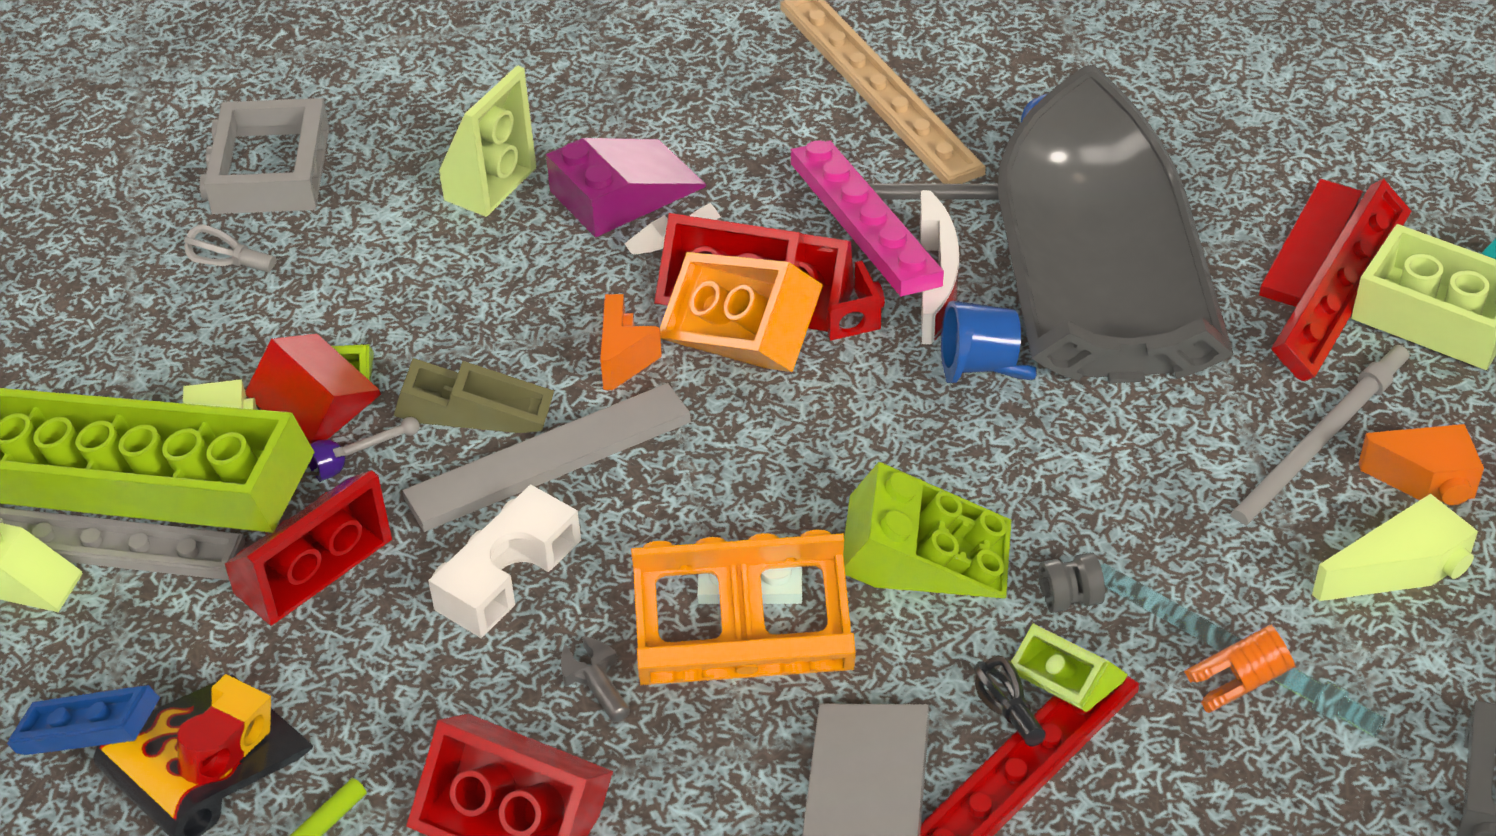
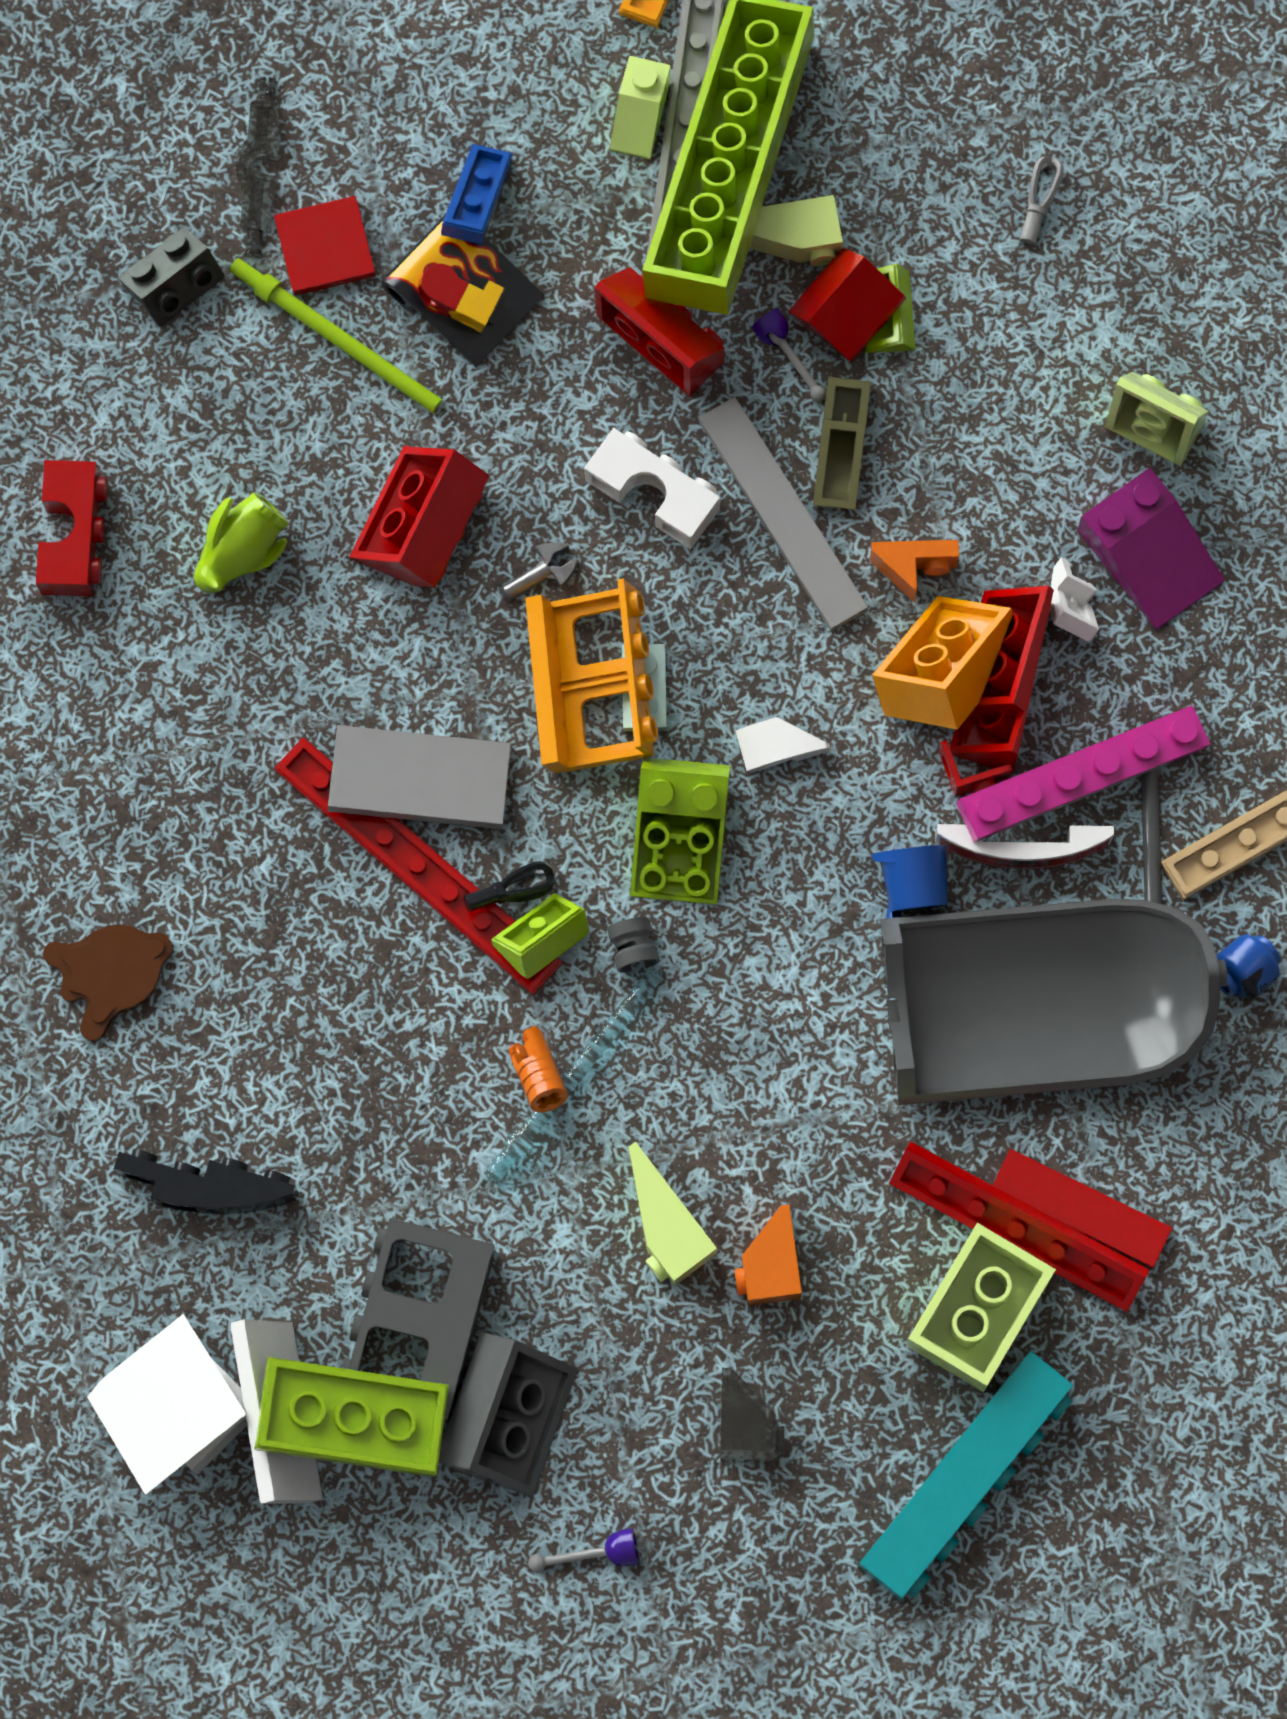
camera: 90 degrees right, 30 degrees up
(267, 190) = (1171, 248): light grey window -> none
(823, 460) = (775, 743): none -> white slope
(1371, 381) = (886, 1238): light grey bar -> none

